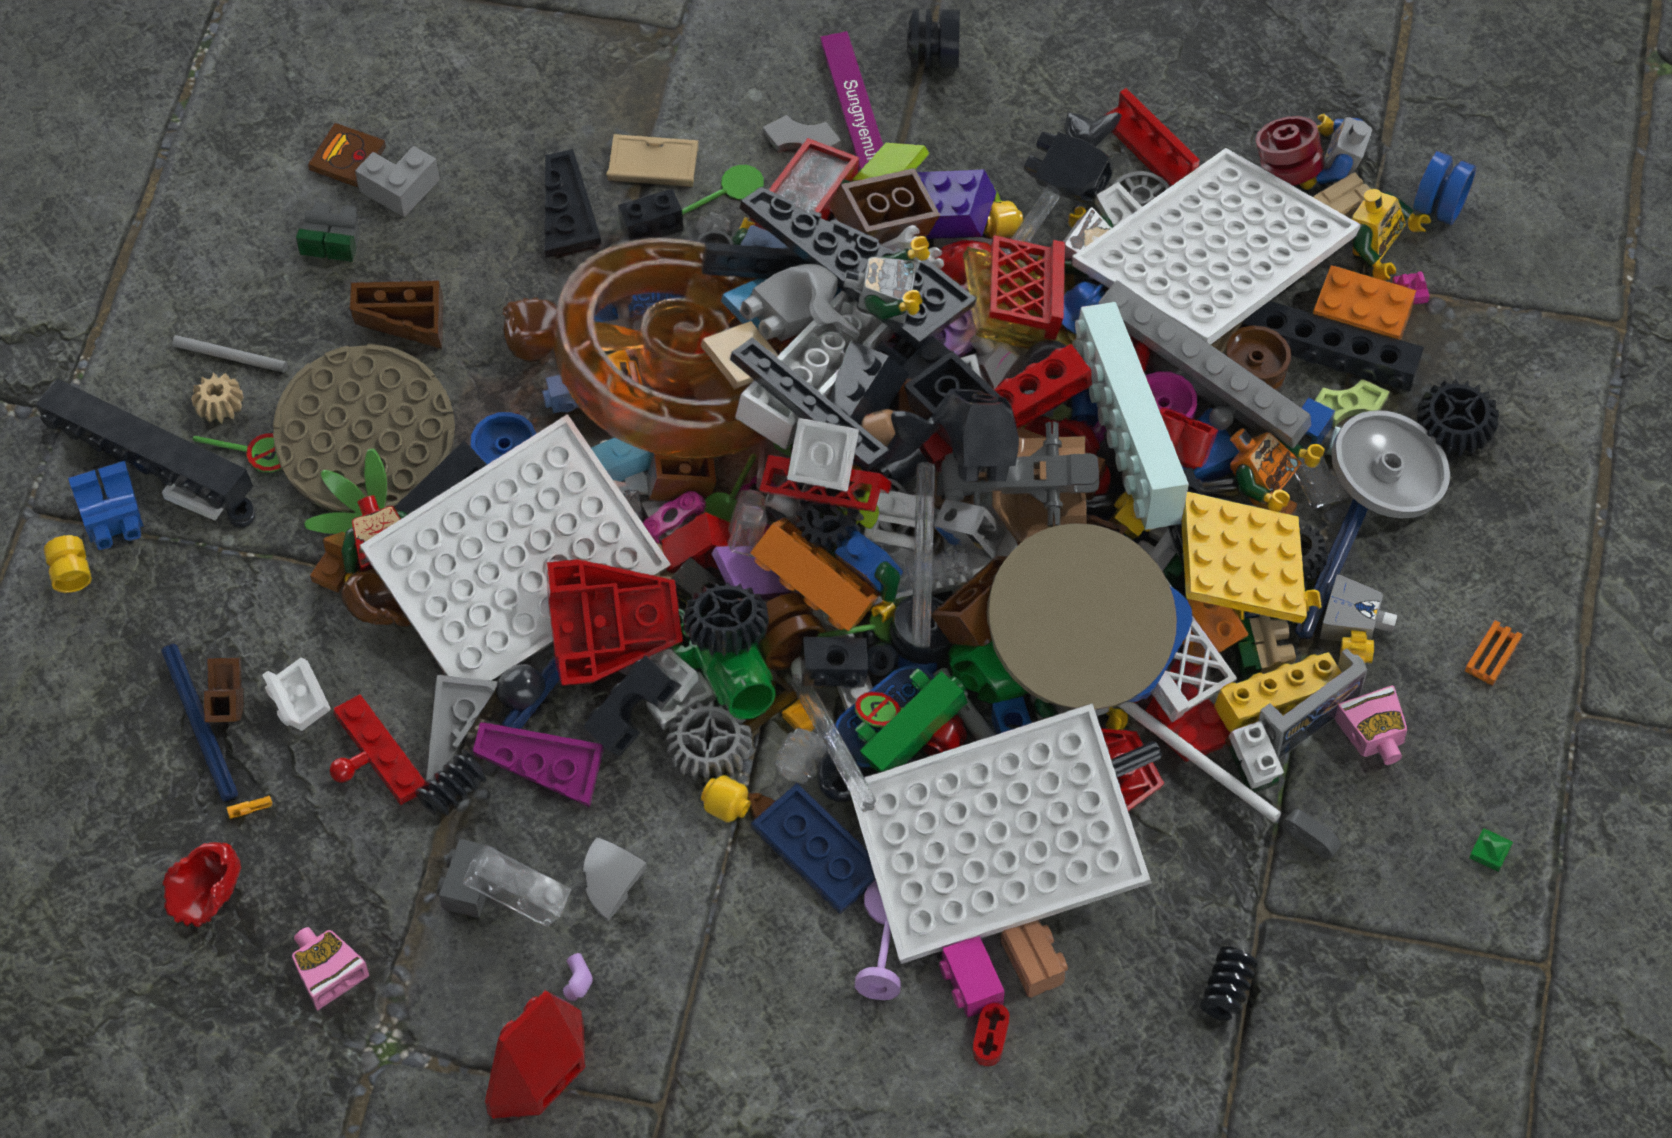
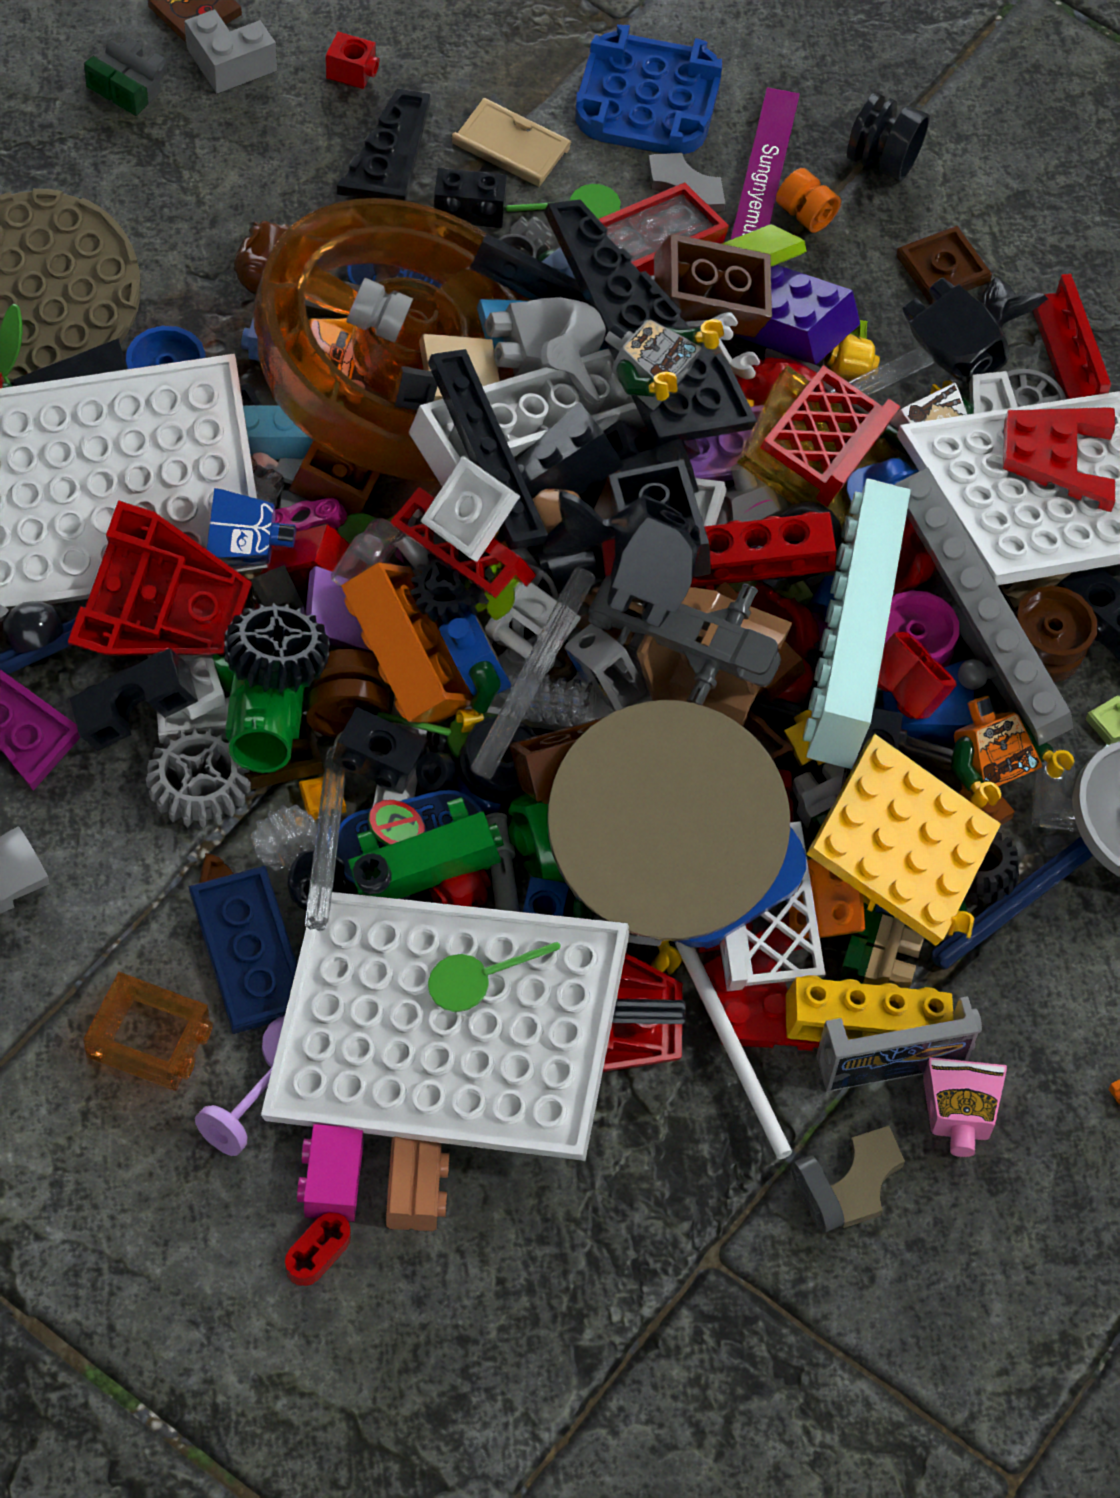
camera: 20 degrees right, 0 degrees up
(400, 309) = (149, 181): reddish brown wedge -> none
(497, 147) = (351, 60): none -> red brick
(644, 542) = (245, 529): none -> blue torso
(663, 334) = (379, 310): none -> light grey wheel
(723, 382) = (414, 388): none -> black tile
(725, 798) = (178, 847): yellow head -> none
(733, 78) = (648, 92): none -> blue tile
(783, 965) = (100, 1035): none -> clear orange window
(878, 745) = (368, 862): none -> black bush
(893, 108) = (808, 200): none -> orange wheel
(994, 798) = (463, 981): none -> bright green piece
(1024, 118) = (945, 256): none -> reddish brown tile
(1183, 230) = (1044, 449): none -> red wing
(1227, 982) = (618, 1319): black piece -> none
(1255, 755) = (798, 1074): white hips -> none
(1321, 420) = (1089, 729): blue panel -> none
(1334, 792) = (873, 1161): none -> dark tan tile
(1354, 608) = (1010, 963): light grey torso -> none
(1359, 645) = (992, 1005): yellow gear -> none
(1491, 850) = (1022, 1312): green tile -> none

